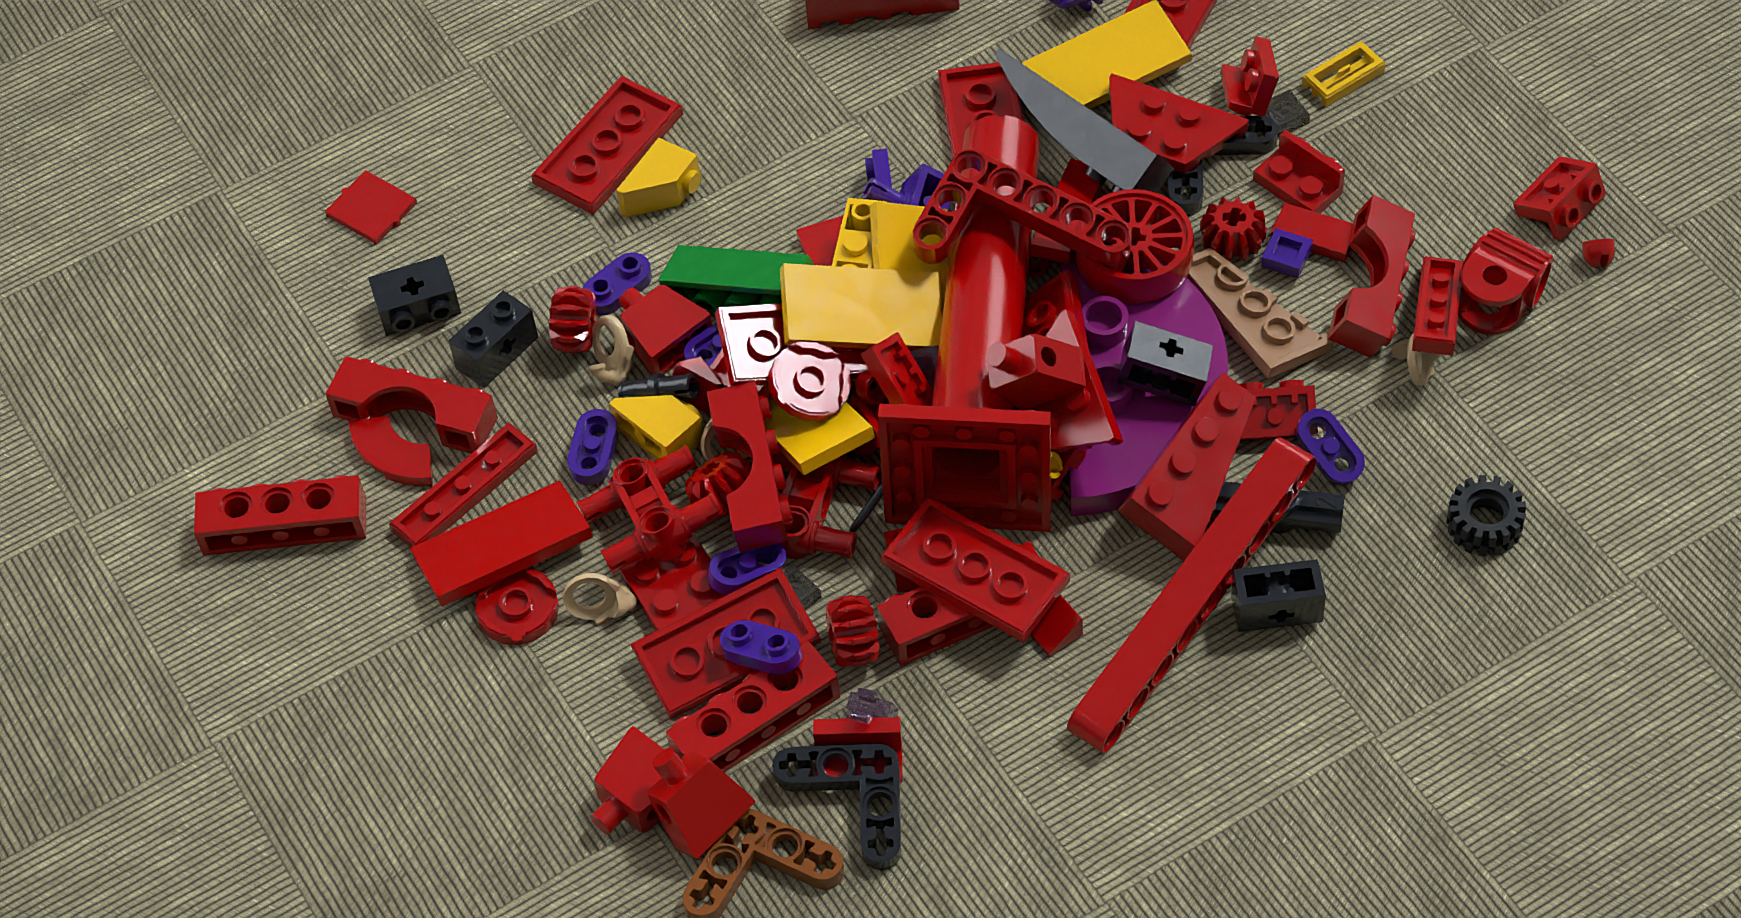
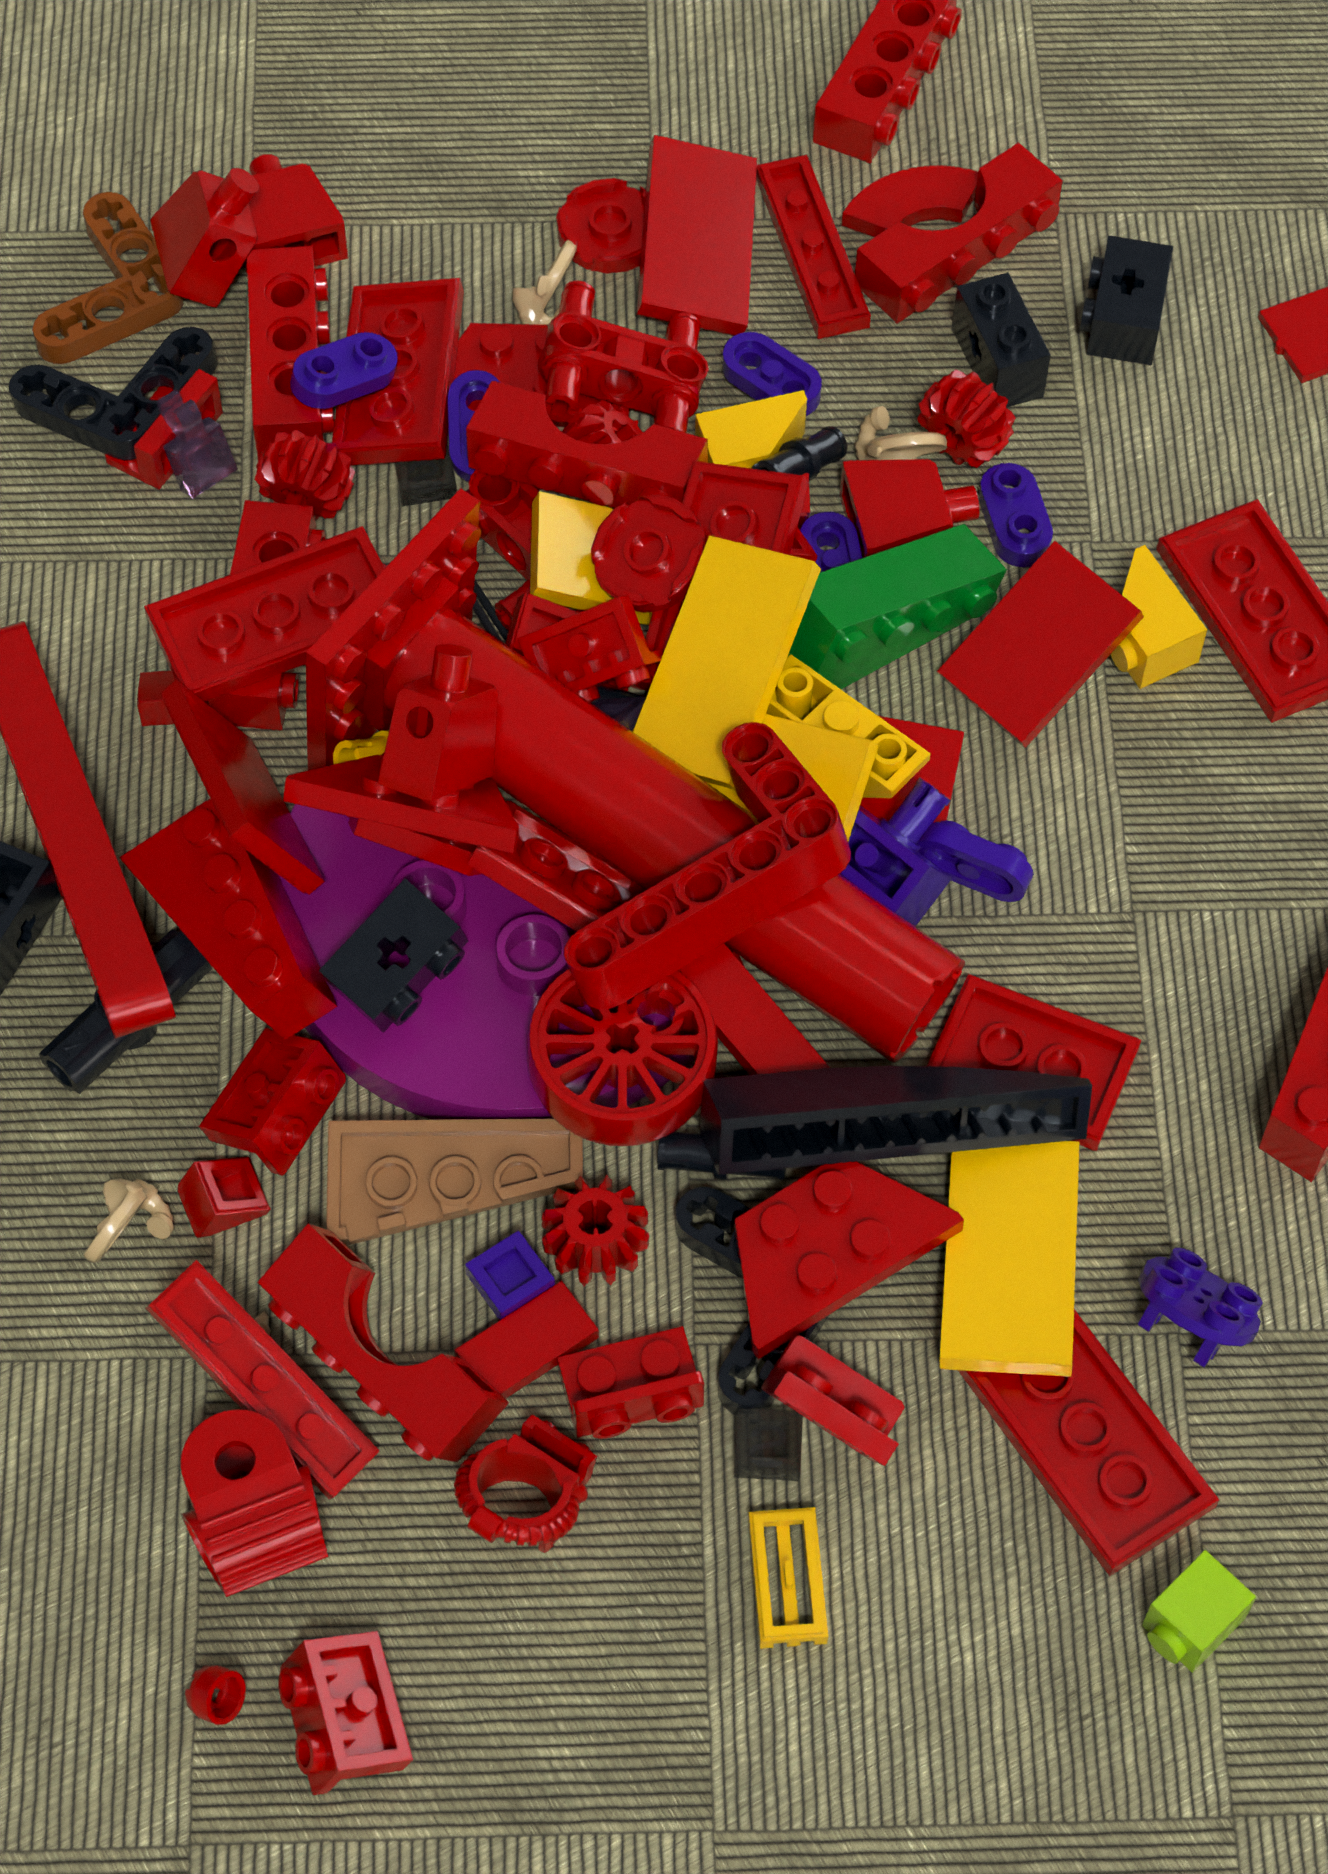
camera: 115 degrees right, 5 degrees up
(715, 209) = (1040, 644): none -> red tile
(1114, 500) = (241, 788): none -> red tile
(1332, 446) = (160, 1116): dark purple plate -> none
(1349, 406) = (221, 1195): none -> red slope
(1387, 442) = (123, 1202): none -> tan piece
(1393, 164) = (538, 1458): none -> red piece

